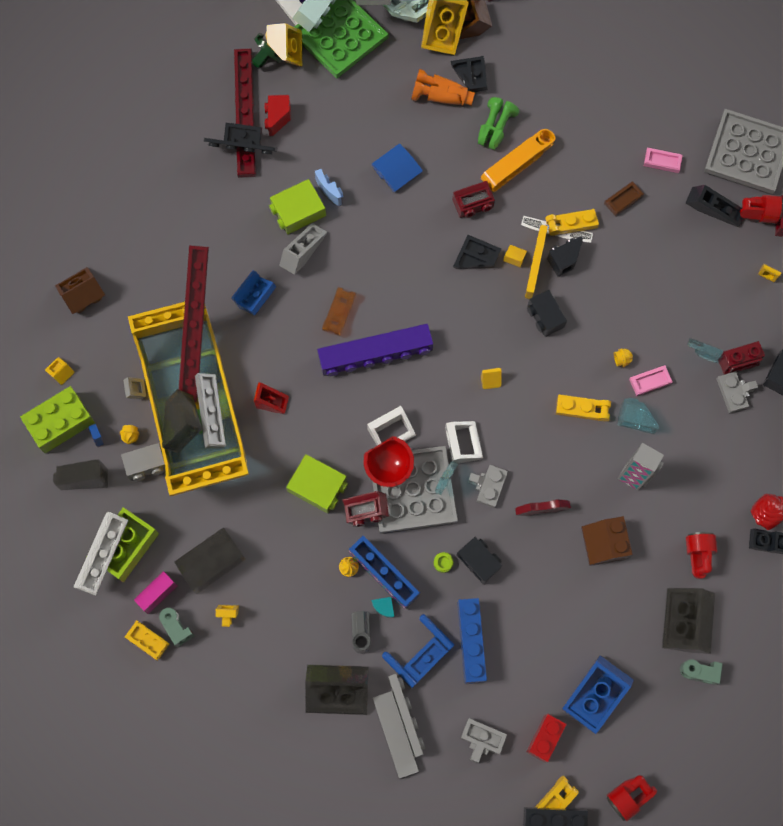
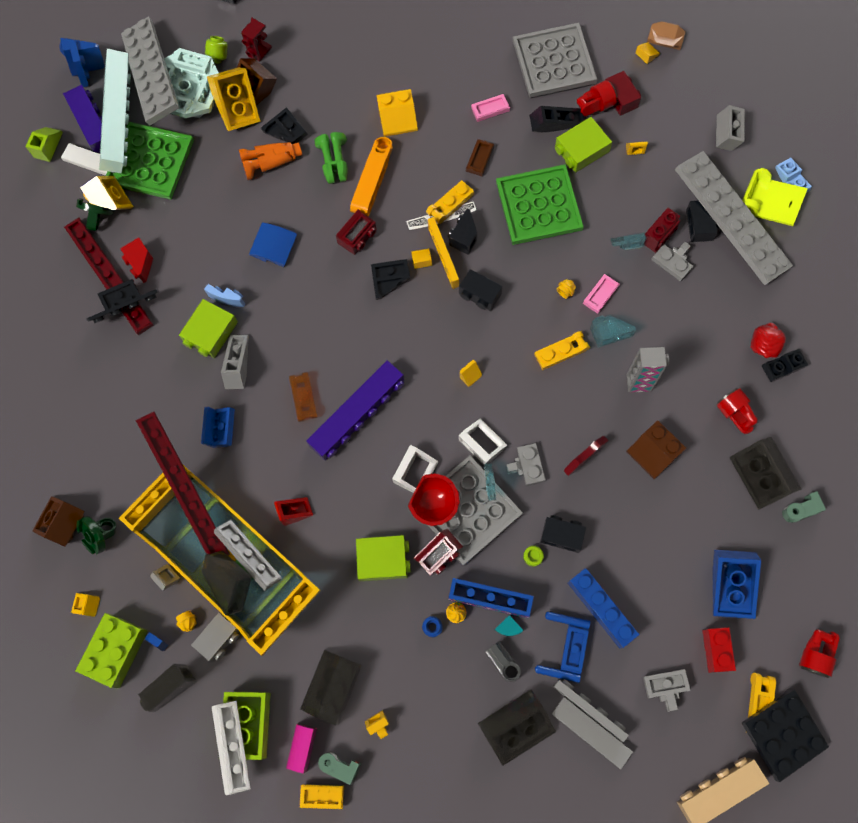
camera: 25 degrees left, 0 degrees up
(101, 318) = (93, 534): none -> dark green tile
(322, 559) = (427, 622): none -> blue plate
(576, 116) = (397, 112): none -> yellow slope
(648, 270) = (539, 204): none -> bright green plate
(722, 241) = (583, 144): none -> lime brick

